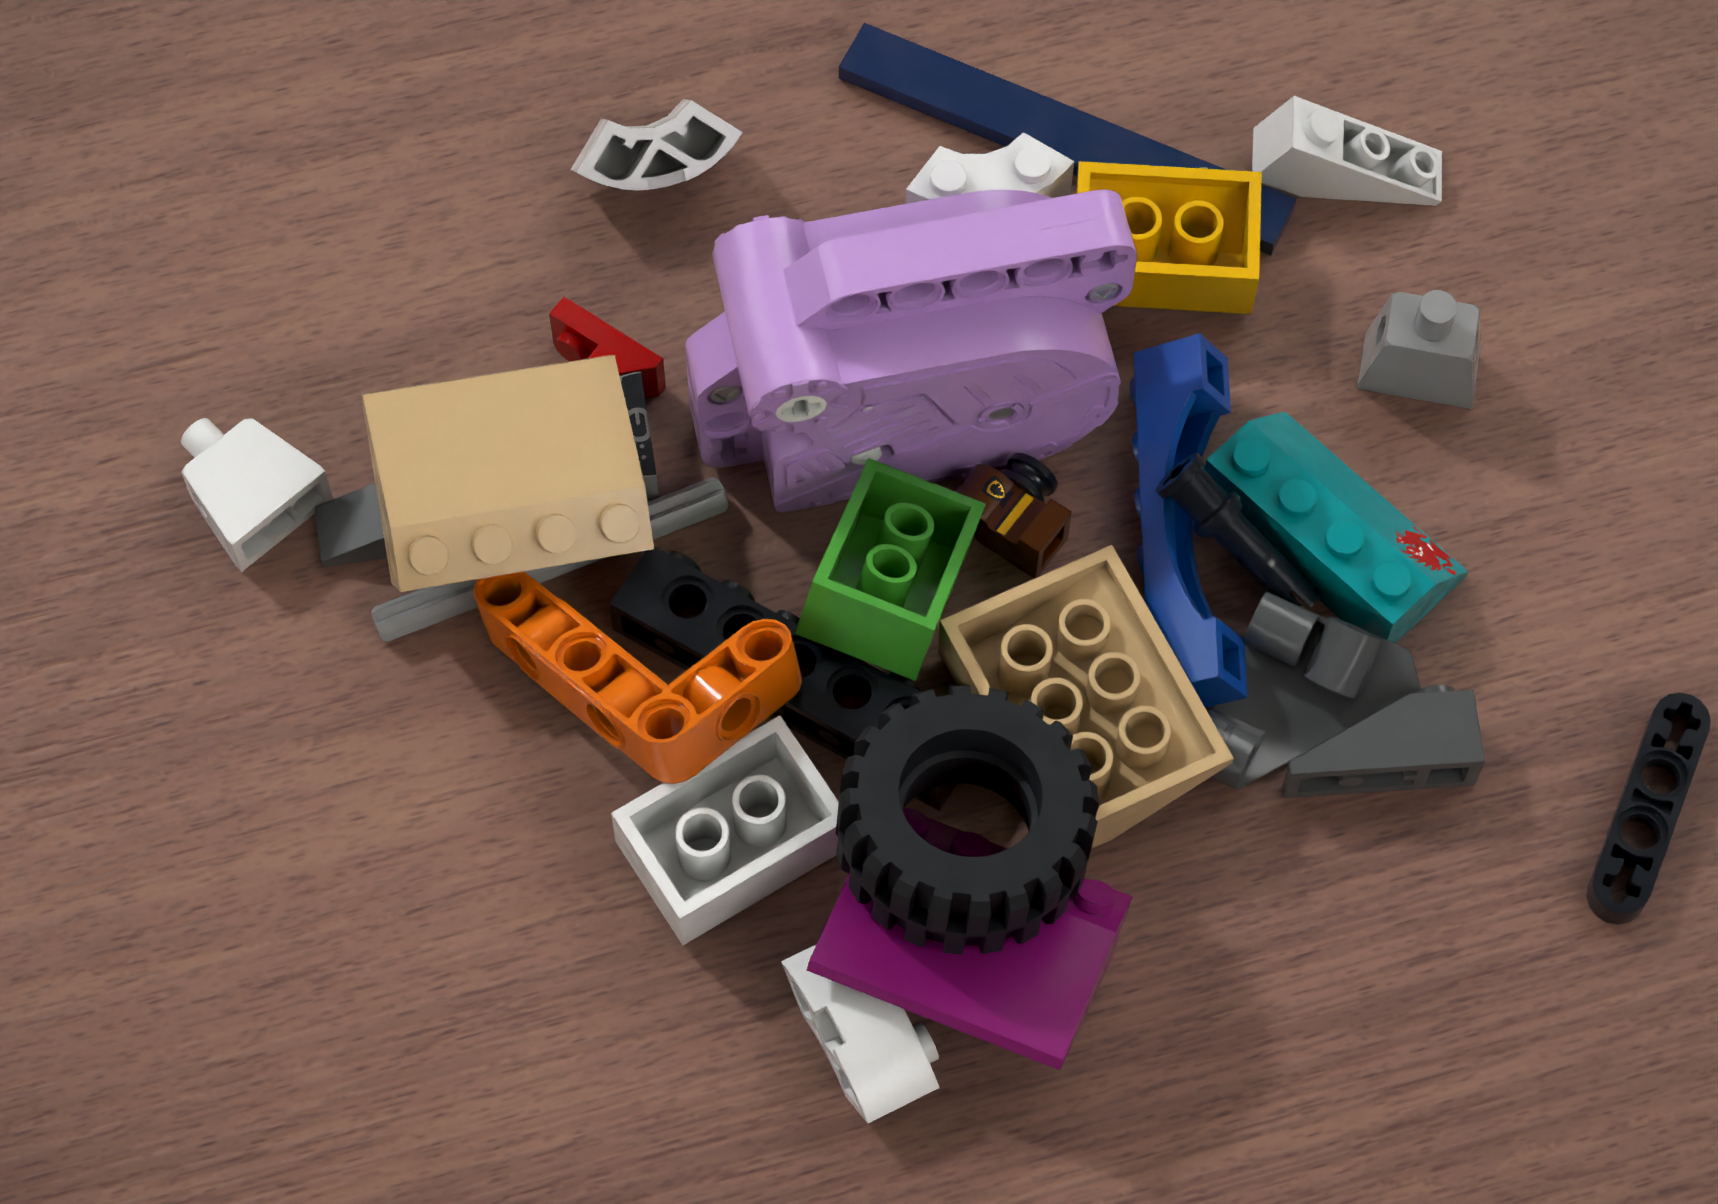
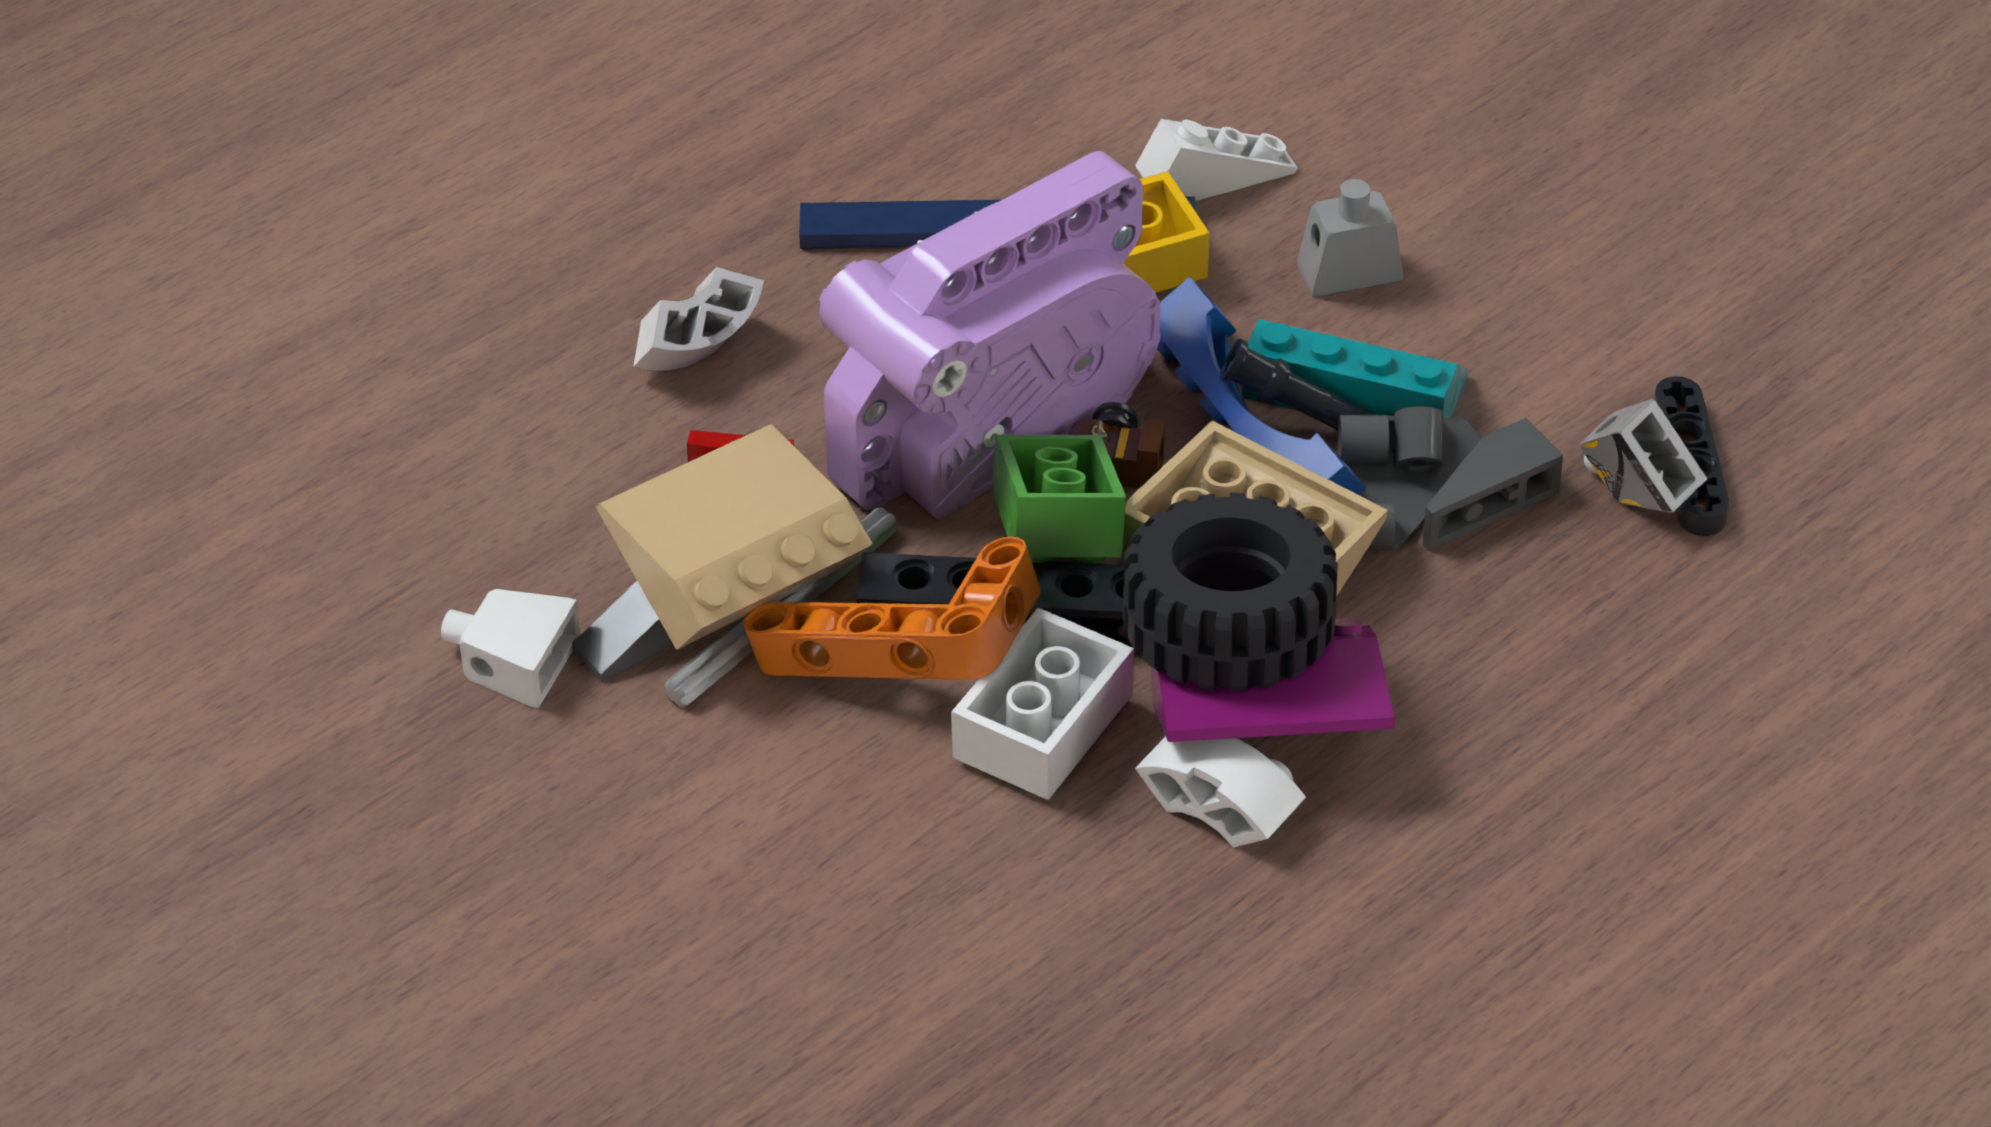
camera: 25 degrees left, 20 degrees down
(1566, 788) = (1642, 458): none -> light grey torso

